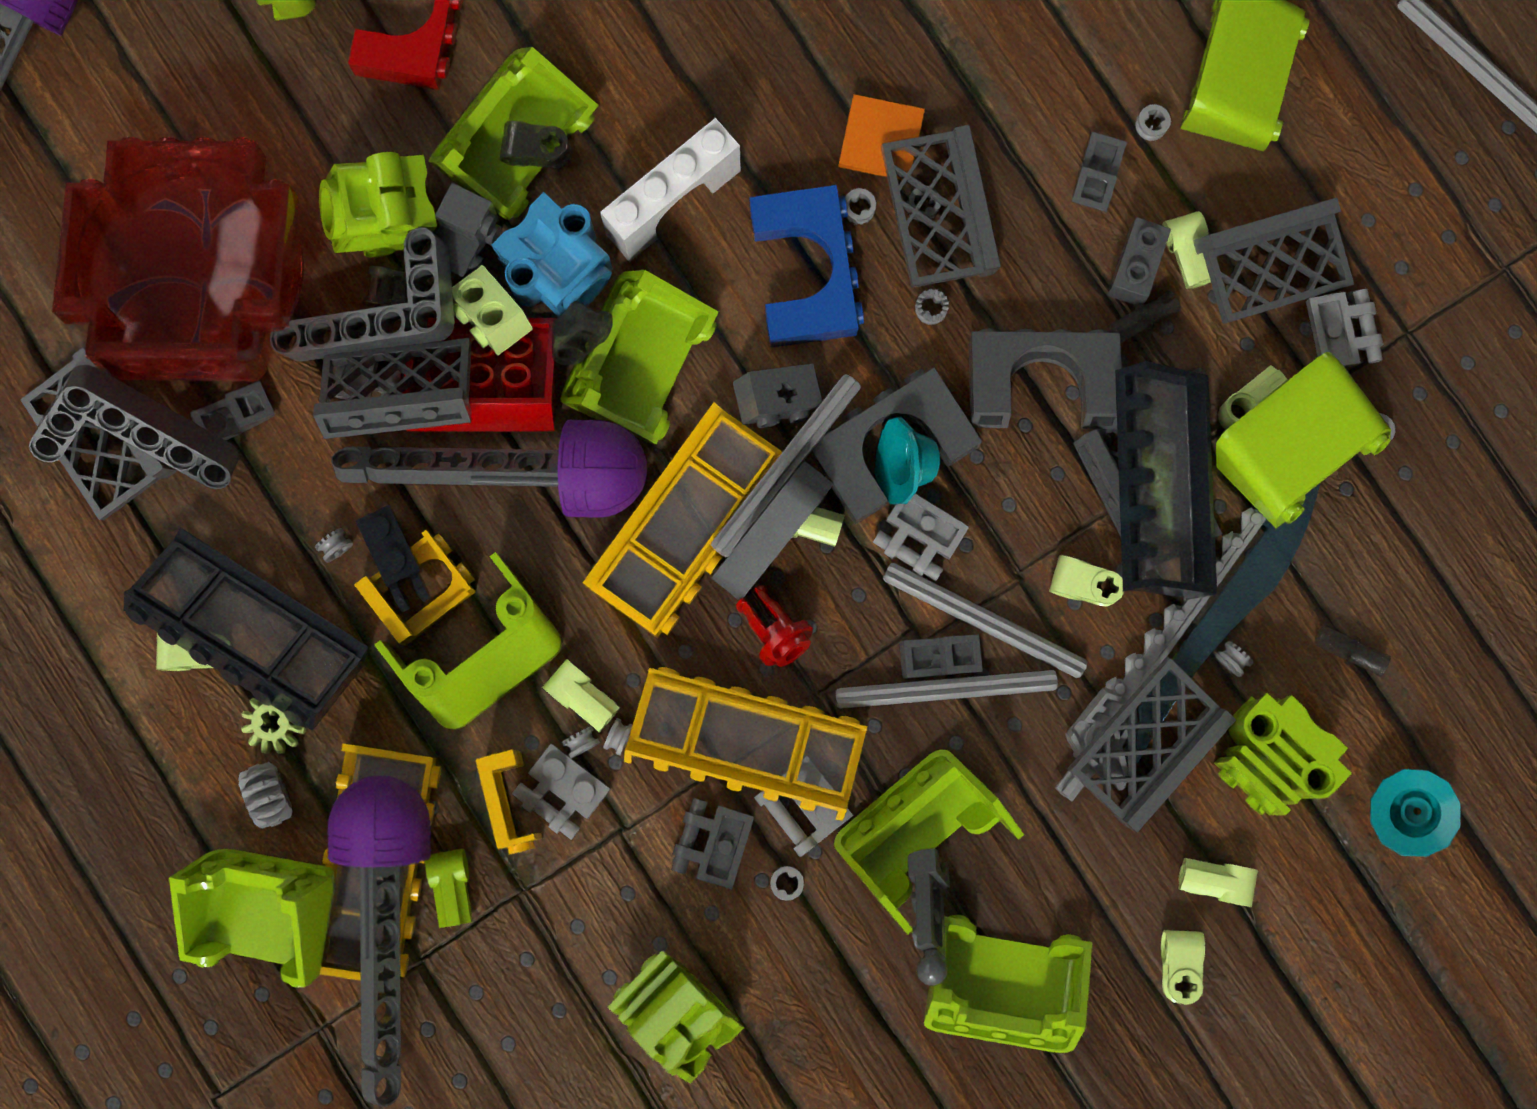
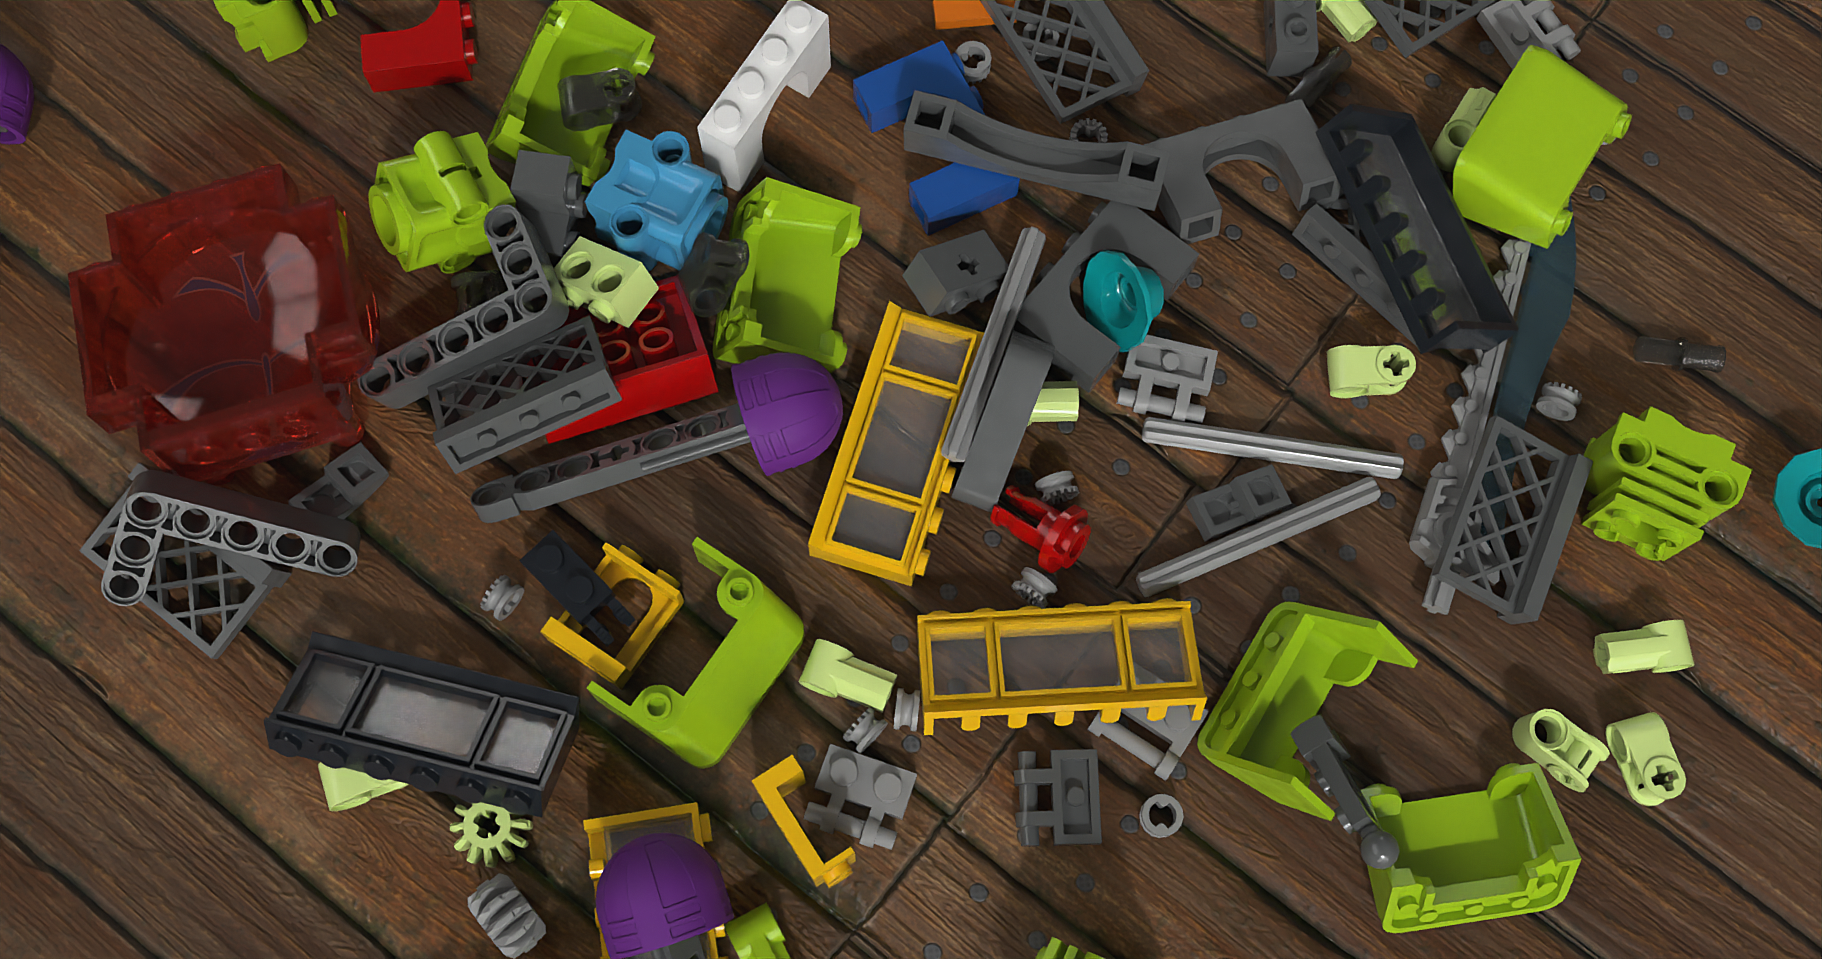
camera: 20 degrees left, 10 degrees down
(752, 672) = (1035, 587): none -> light grey bush
(798, 597) = (1057, 487): none -> light grey bush
(851, 303) = (961, 135): none -> dark grey arch
(1122, 940) = (1568, 750): none -> yellowish green piece

